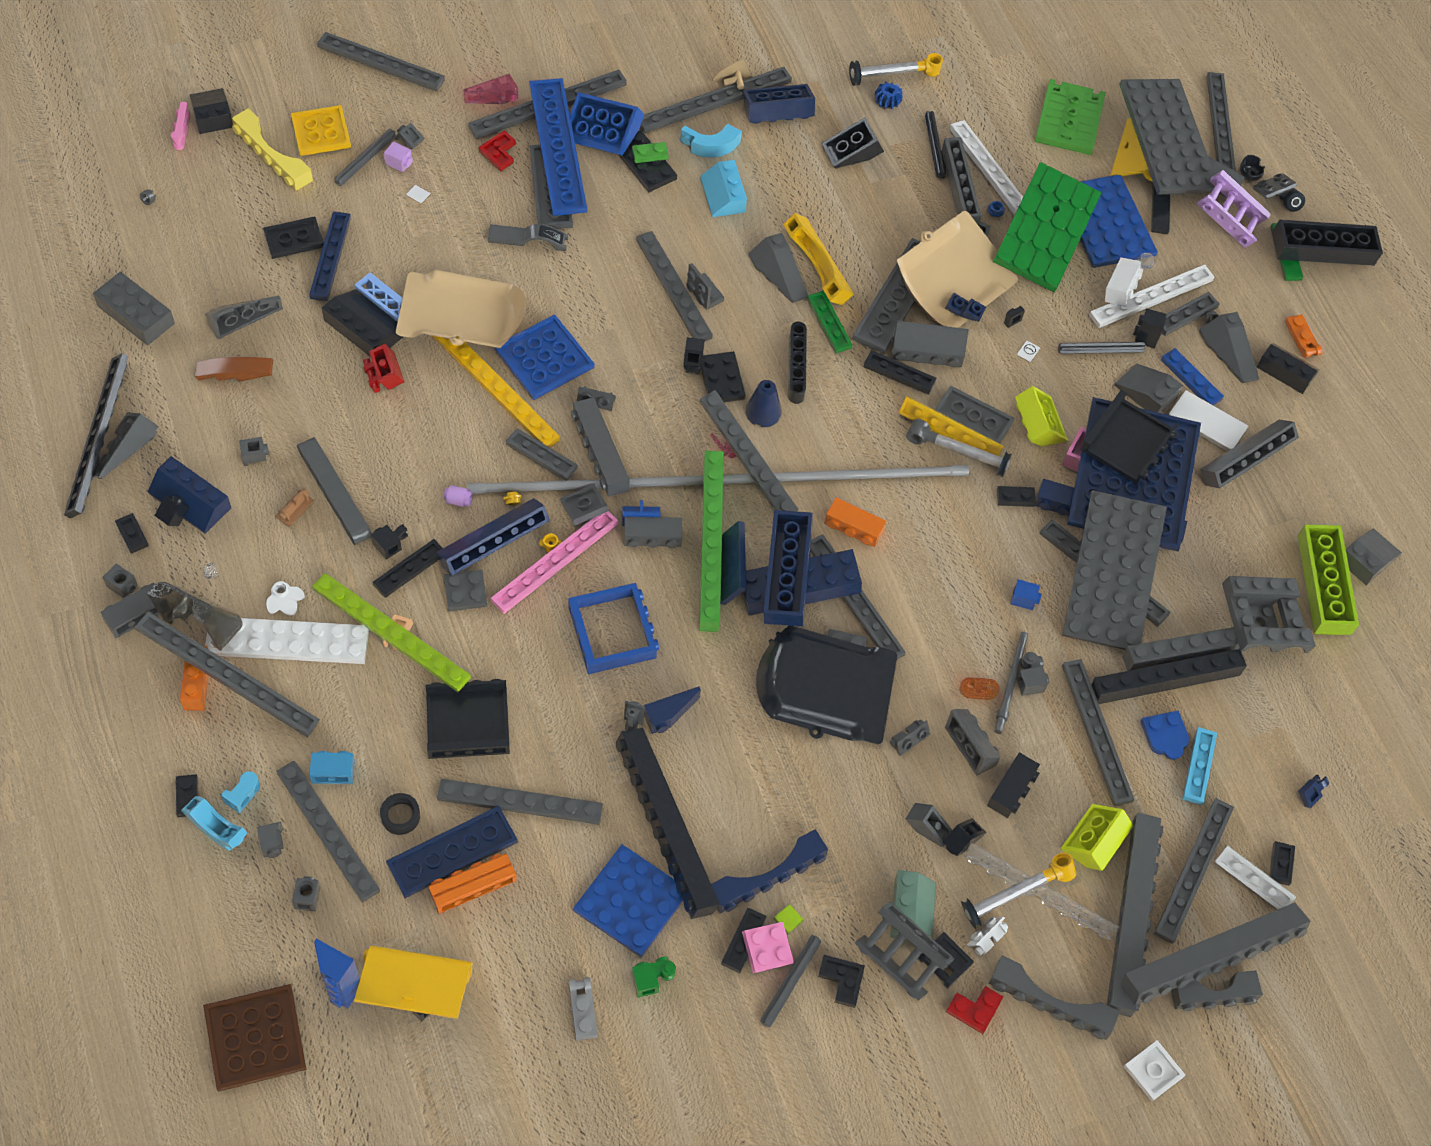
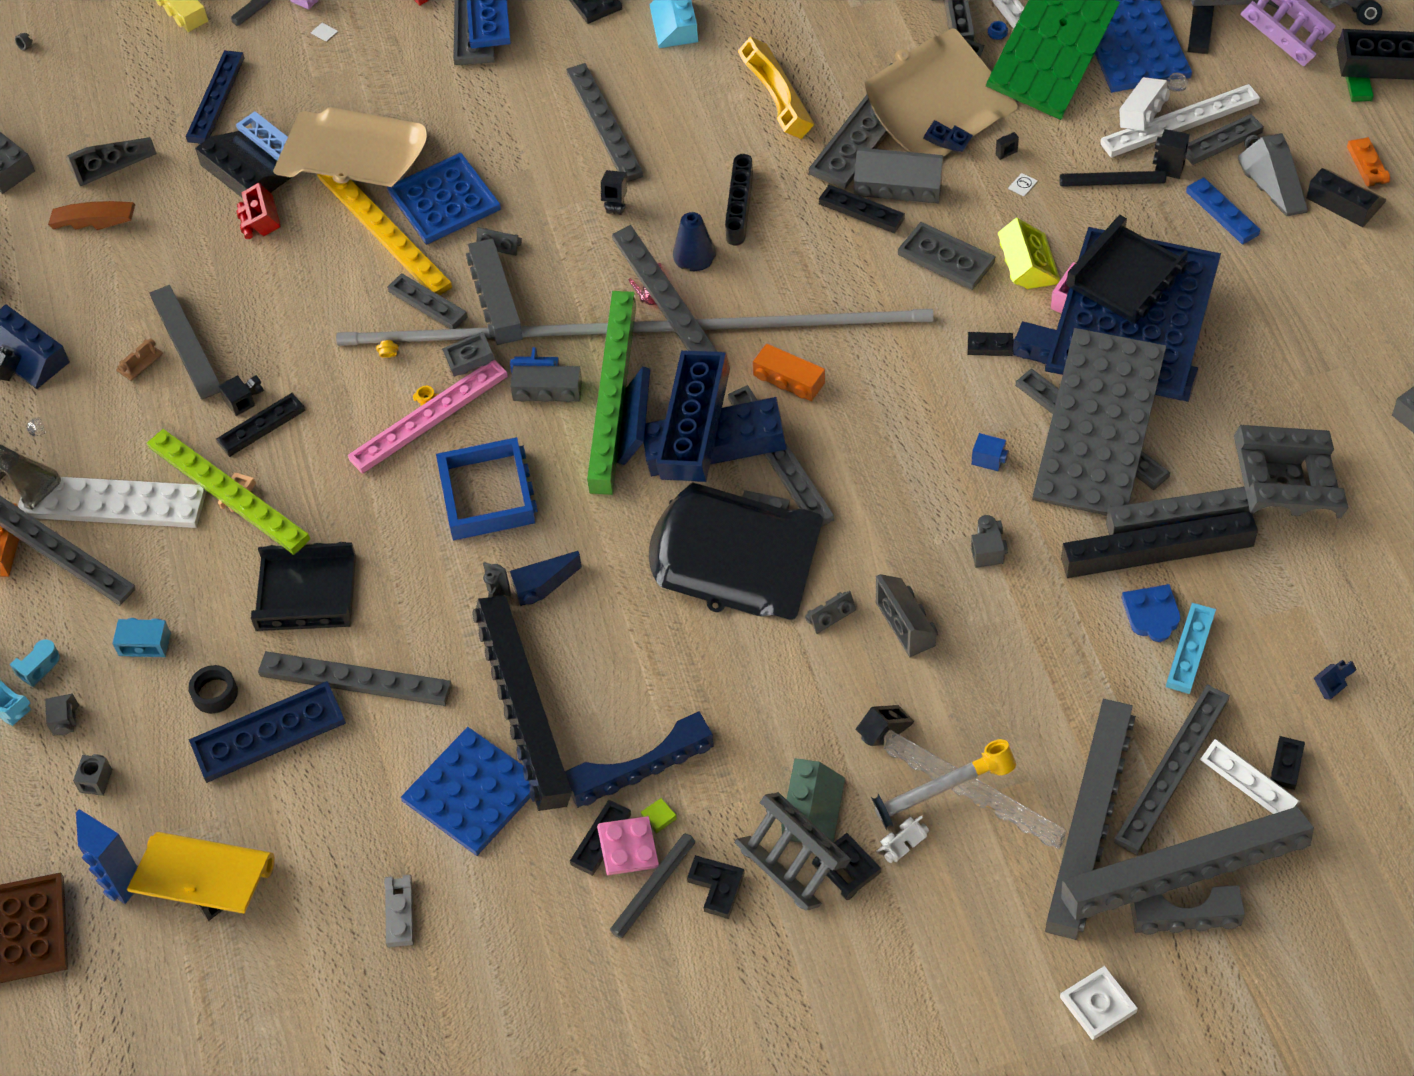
camera: 15 degrees right, 5 degrees down
(253, 450) = (100, 299): dark grey brick -> none
(284, 601) = (114, 456): white plate -> none
(293, 237) = (177, 78): black plate -> none
(328, 831) = (129, 708): dark grey plate -> none
(458, 496) = (325, 346): lavender brick -> none
(465, 590) = (321, 448): dark grey plate -> none
(472, 883) = (285, 766): orange brick -> none
(493, 536) = (358, 388): dark blue brick -> none
(520, 236) = (431, 72): dark grey piece -> none
(646, 975) = (479, 872): green brick -> none
(703, 288) = (636, 121): dark grey bracket -> none
(723, 375) = (650, 216): black plate -> none
(776, 261) = (728, 95): dark grey wedge -> none
(829, 322) = (783, 155): green plate -> none
(921, 432) = (880, 273): piece -> none
(928, 823) = (840, 707): dark grey slope -> none
(948, 427) = (917, 270): yellow plate -> none
(976, 1014) = (879, 931): red plate -> none
(979, 688) = (922, 558): clear orange plate -> none
(1003, 713) = (948, 586): dark grey bar -> none
(1014, 785) = (952, 667): black brick -> none
(1094, 1018) = (1025, 937): dark grey arch -> none
(1098, 733) = (1065, 609): dark grey plate -> none
(1098, 836) = (1053, 727): neon yellow slope -> none
(1149, 387) = (1168, 221): dark grey slope -> none
(1215, 424) = (1242, 259): white tile -> none
(1249, 453) = (1285, 292): dark grey brick -> none
(1328, 580) = (1373, 434): lime brick -> none

